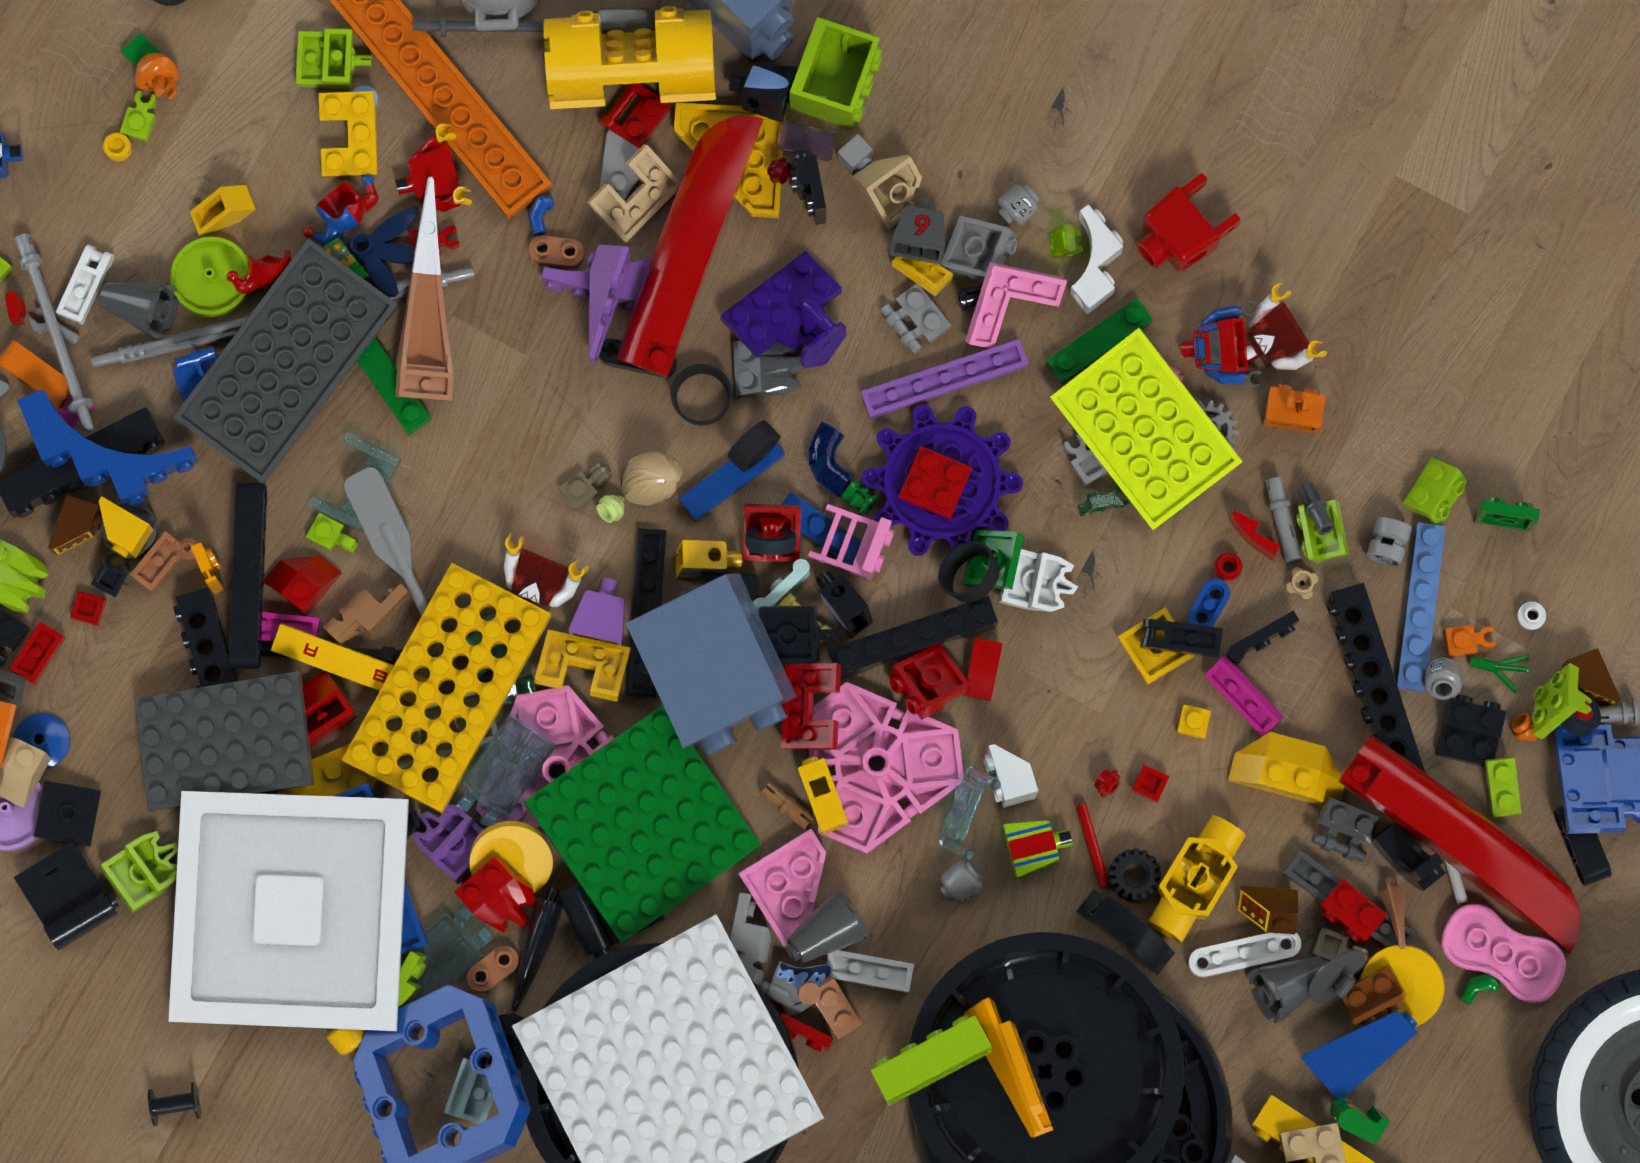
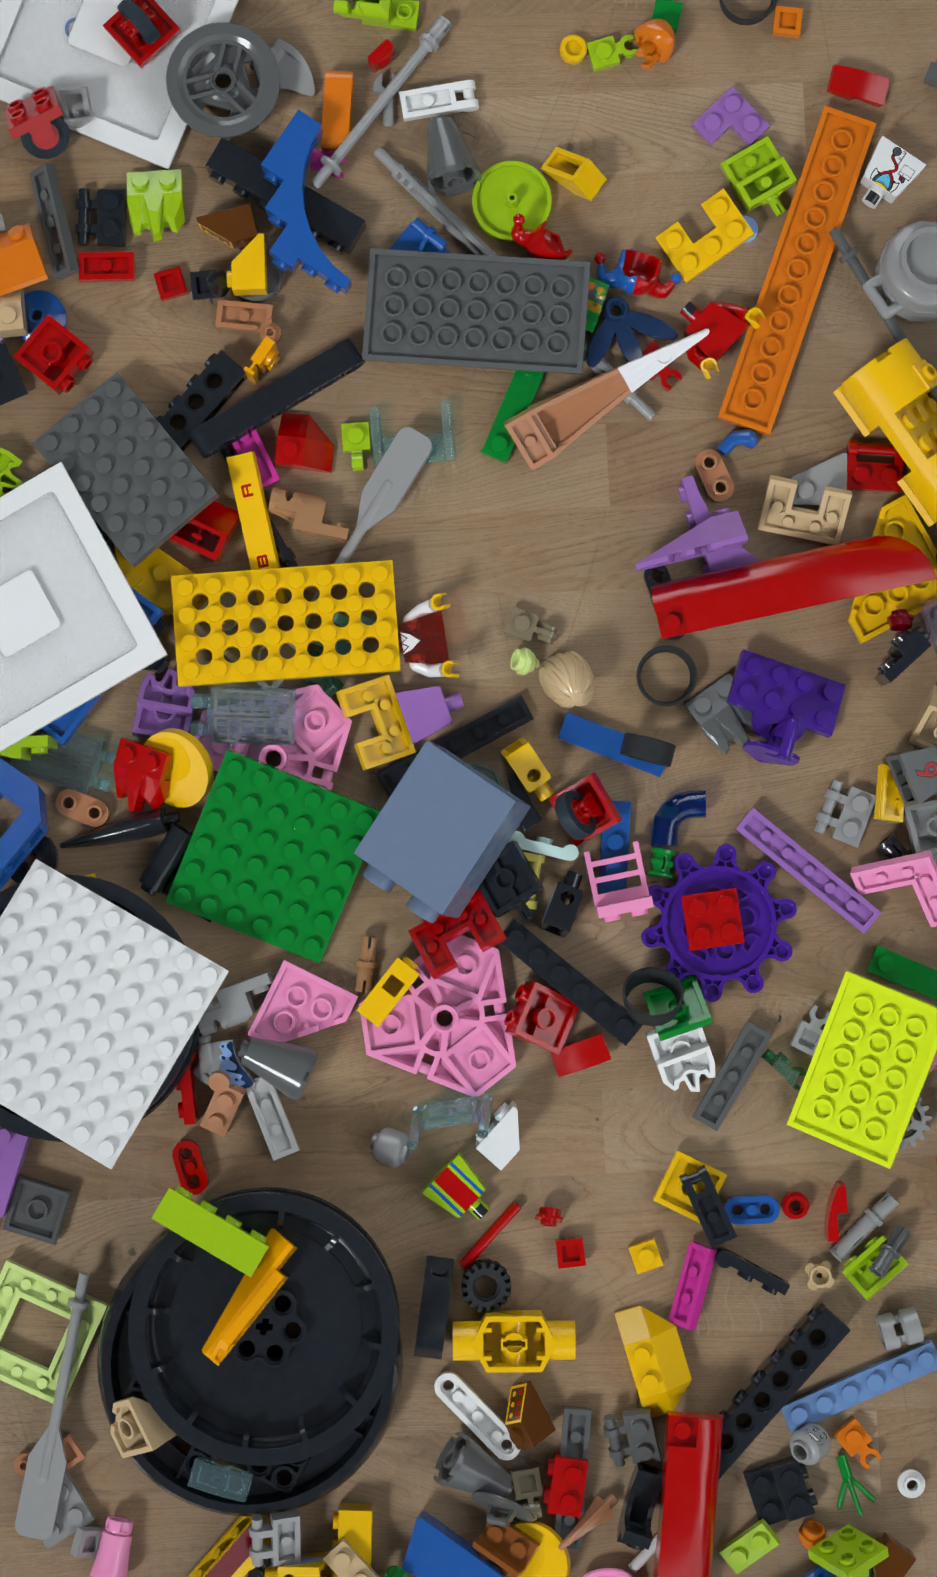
camera: 55 degrees right, 10 degrees up
(84, 744) = (55, 355): none -> red plate
(258, 49) = (731, 112): none -> medium lavender plate
(864, 1075) = (190, 1166): none -> red plate
(1082, 551) = (732, 1076): none -> dark grey plate

